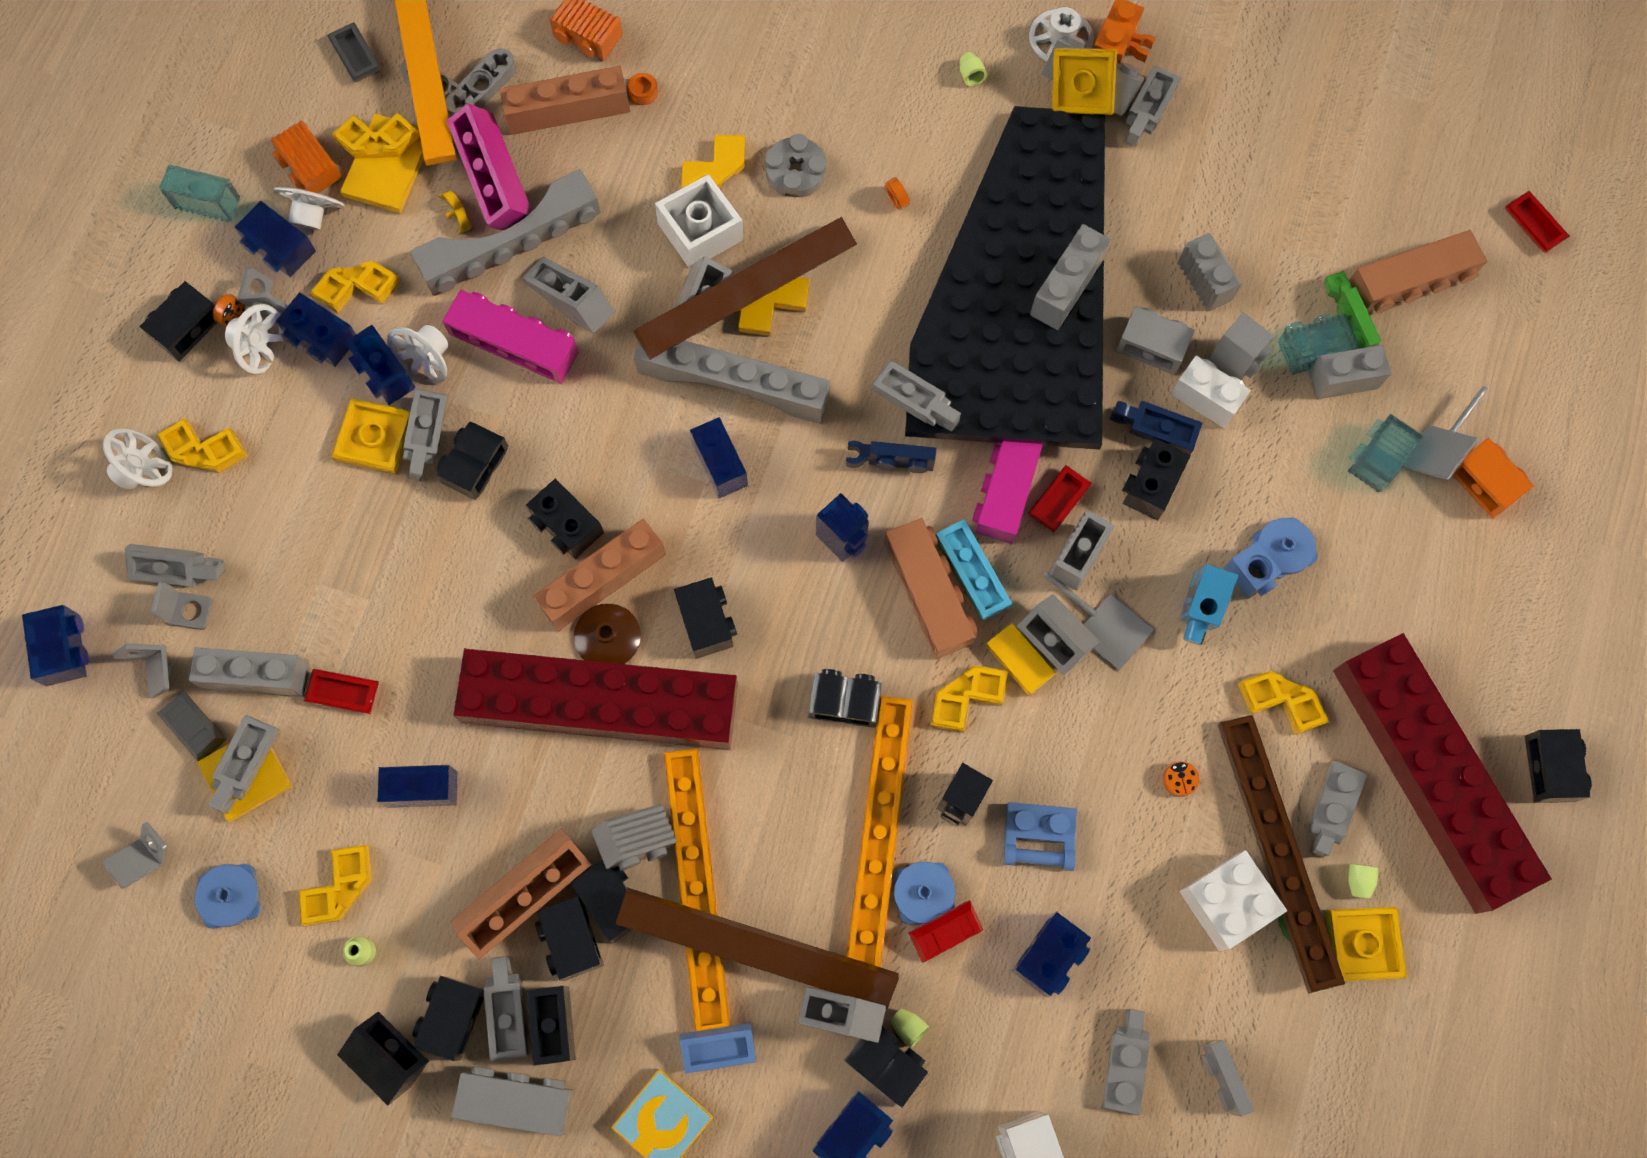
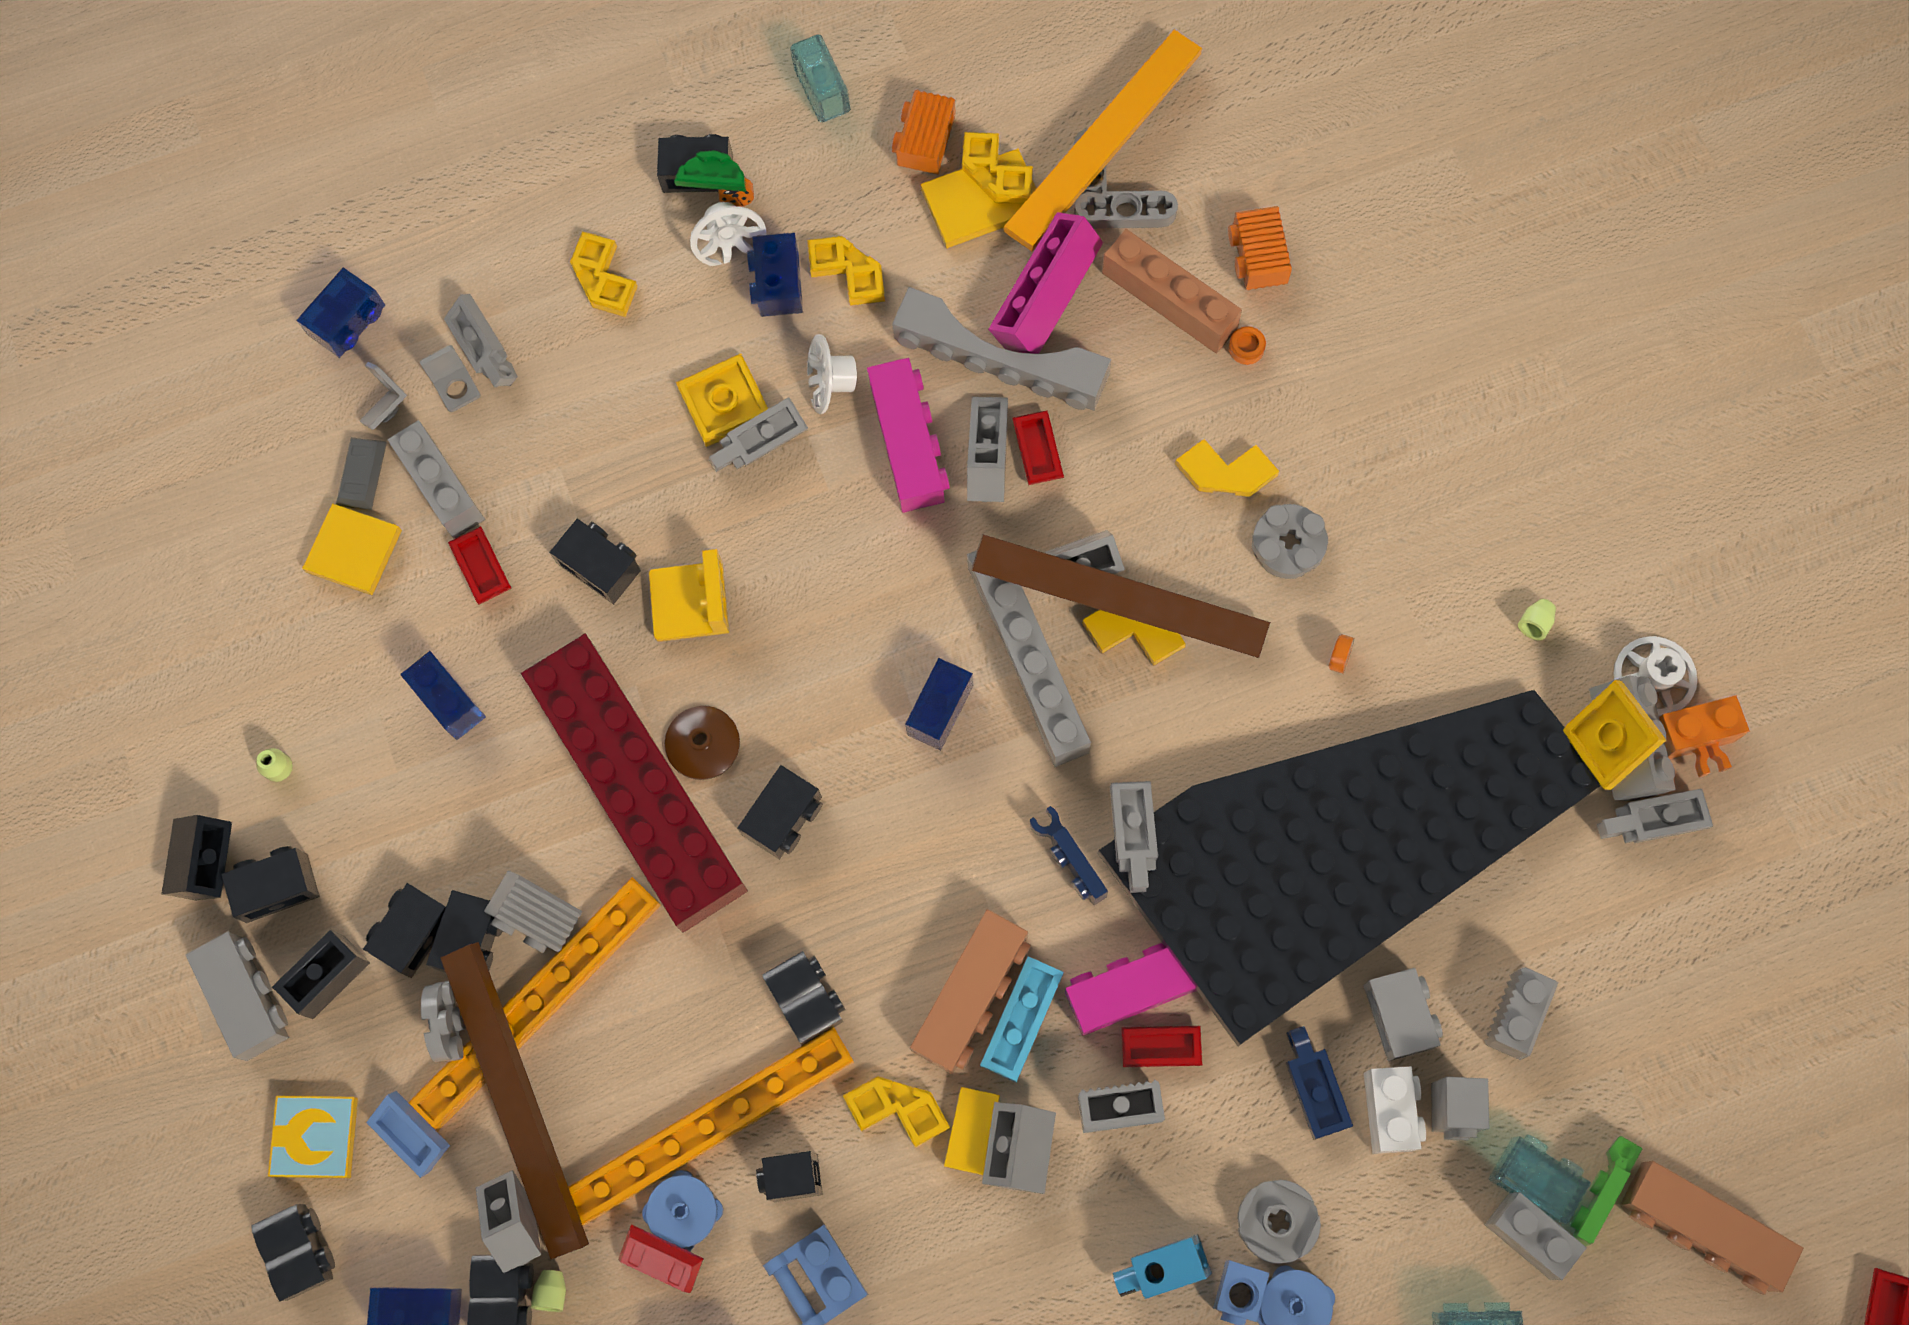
camera: 60 degrees right, 0 degrees up
(133, 464) = (540, 237): white wheel -> none
(137, 858) = (217, 526): light grey bracket -> none
(201, 309) = (711, 171): none -> green tile
(227, 895) = (243, 622): medium blue piece -> none
(241, 762) = (355, 538): light grey hinge -> none
(249, 299) = (766, 209): light grey bracket -> none
(275, 239) = (827, 172): clear blue brick -> none
(307, 211) = (876, 172): white wheel -> none
(350, 878) = (329, 707): yellow tile -> none
(354, 52) = (1062, 82): dark grey tile -> none
(380, 364) = (784, 351): clear blue brick -> none
(413, 606) = (596, 560): none -> black brick
(458, 210) = (988, 293): yellow piece -> none
(472, 460) = (765, 498): black brick -> none
(499, 564) = (689, 599): none -> yellow bracket
(505, 1012) = (309, 924): light grey hinge -> none
(519, 893) = (414, 856): nougat brick -> none
(564, 519) = (774, 619): black brick -> none
(595, 264) = (1038, 447): none -> red tile
(600, 574) = (747, 691): nougat brick -> none
(661, 958) = (444, 1022): none -> light grey plate
(699, 221) = (1152, 502): white brick -> none
(843, 527) = (959, 868): clear blue brick -> none
(1070, 277) = (1383, 881): light grey brick -> none
(1113, 625) = (1074, 1194): light grey piece -> none
(1156, 478) = (1256, 1123): black brick -> none
(1230, 497) = (1300, 1213): none -> light grey plate

